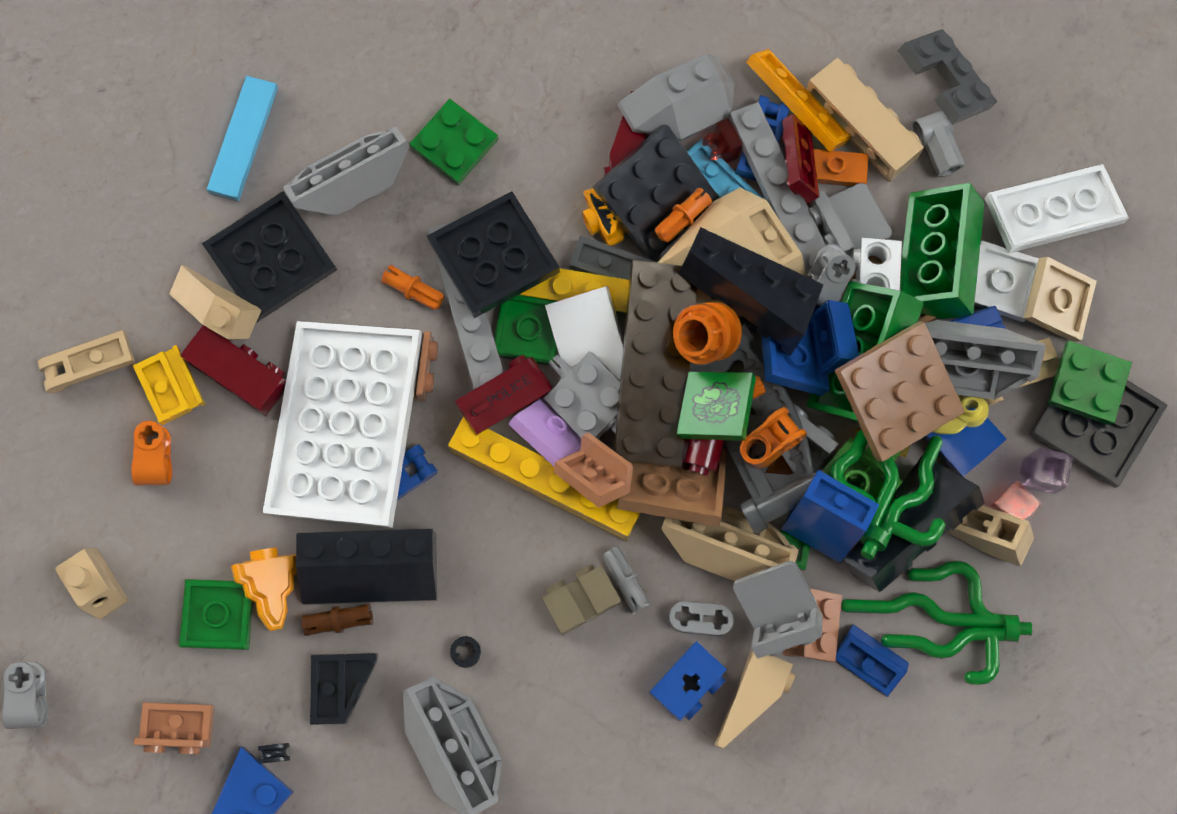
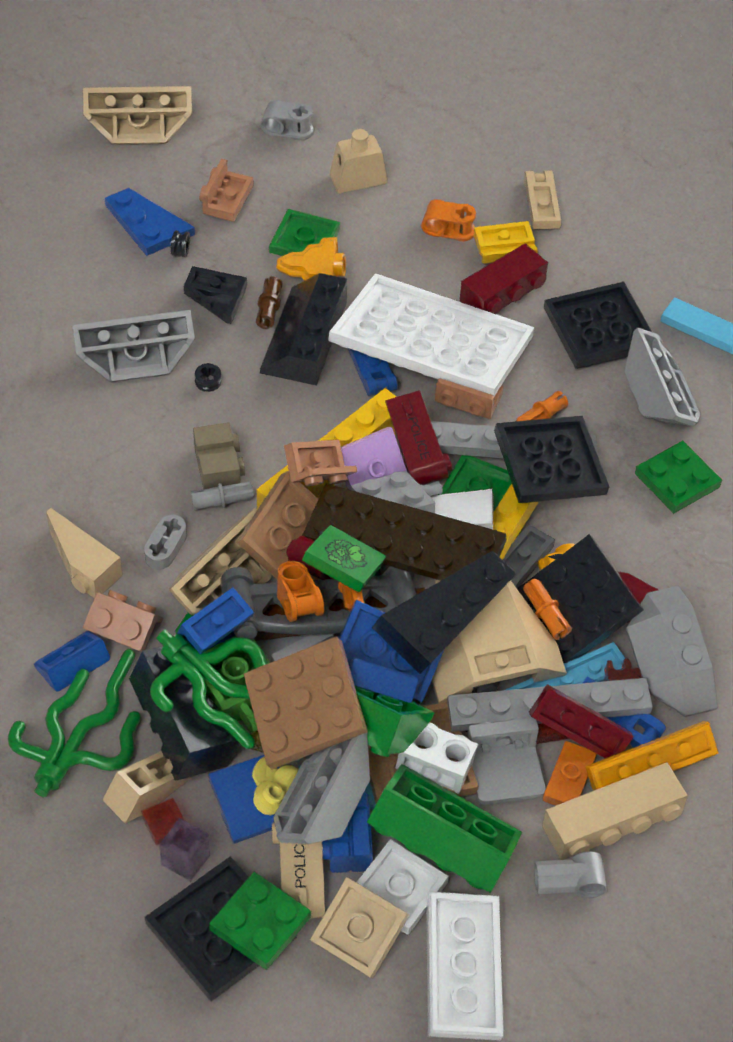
camera: 105 degrees right, 25 degrees down
(214, 305) = (556, 276): tan slope -> none
(692, 328) = (414, 562): orange piece -> none
(695, 662) = (114, 512): blue brick -> none
(779, 609) = (138, 584): light grey bracket -> none
(830, 274) = (446, 701): light grey piece -> none
(967, 91) = (626, 925): dark grey plate -> none

